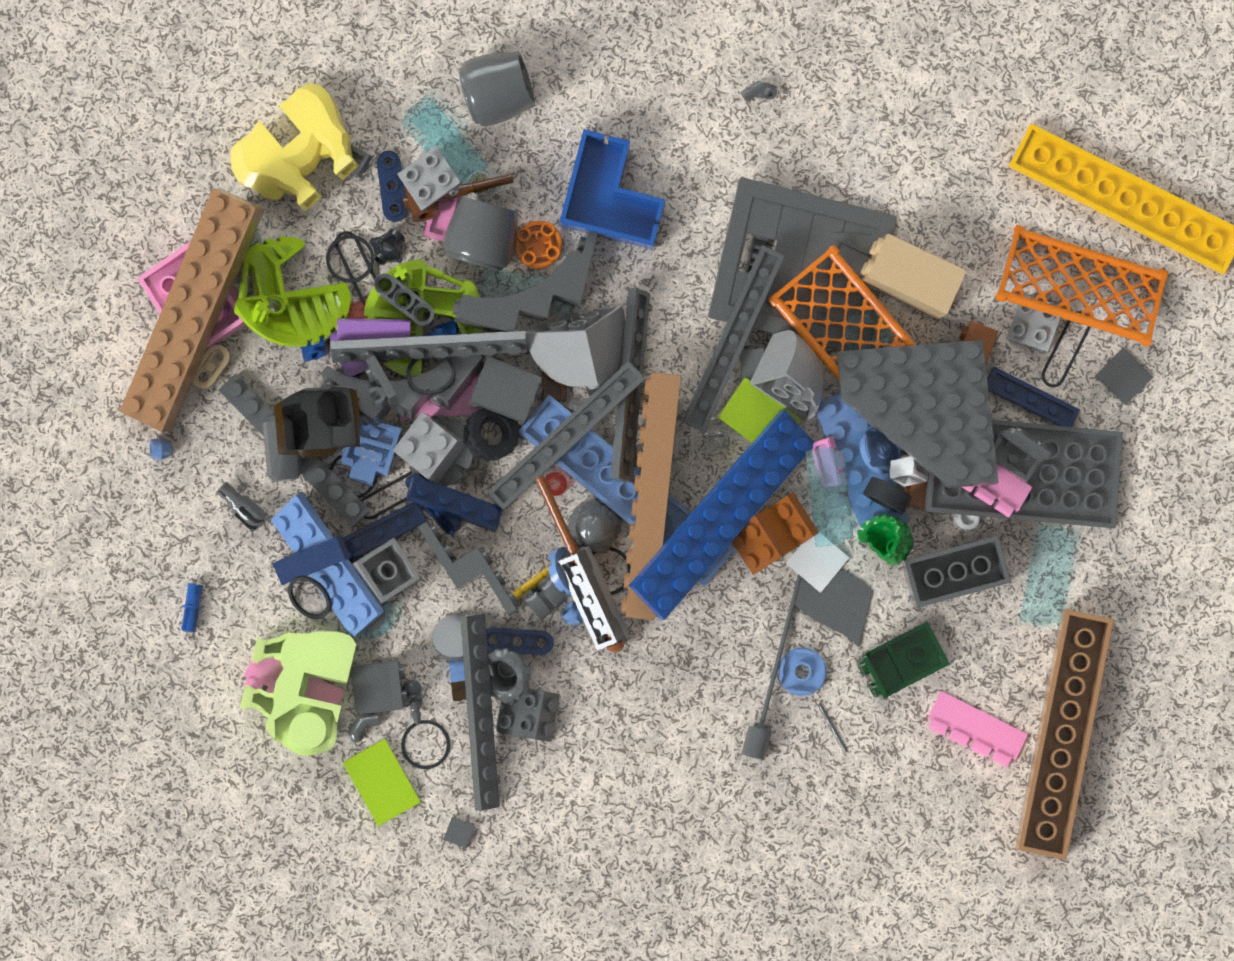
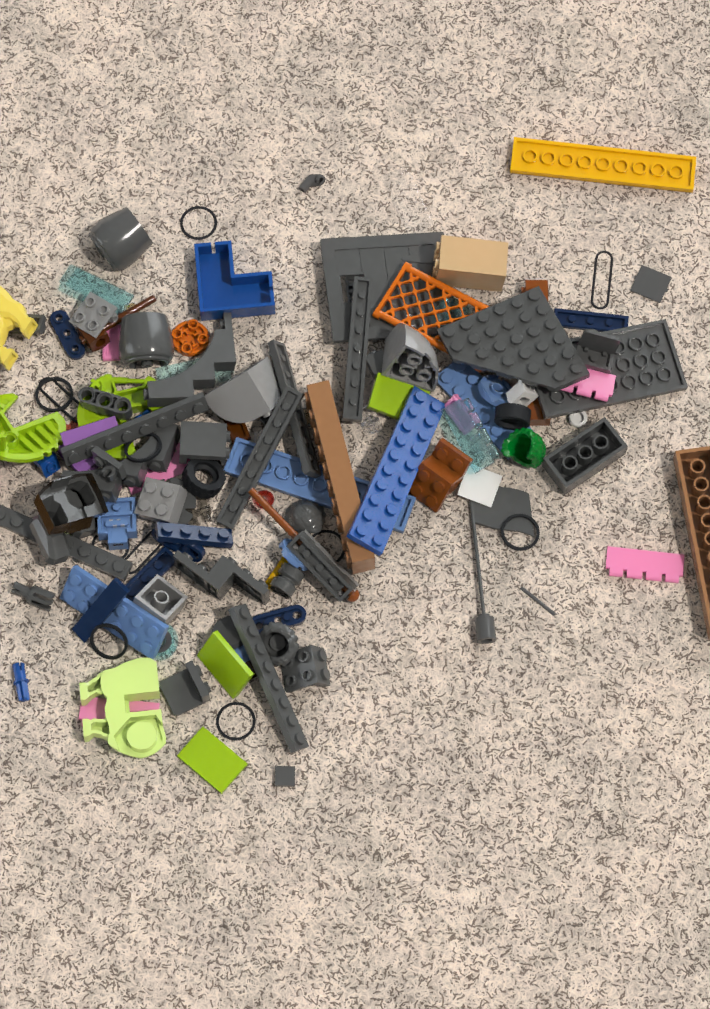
camera: 15 degrees left, 15 degrees down
(360, 724) = (180, 724): dark grey arm -> none
(388, 247) = (79, 375): black rock -> none
(413, 691) = (215, 689): dark grey bar -> none
(435, 676) = (225, 664): none -> lime tile
(572, 614) = (313, 586): medium blue plate -> none
(607, 115) = (198, 207): none -> black piece
(805, 657) = (499, 579): medium blue tile -> none
(865, 636) = (520, 548): none -> black piece
(902, 661) = (570, 533): dark green bracket -> none
(1033, 328) = (572, 268): light grey hinge -> none
(1042, 581) = (649, 439): clear light blue windscreen -> none
(1063, 309) = (588, 248): orange door -> none

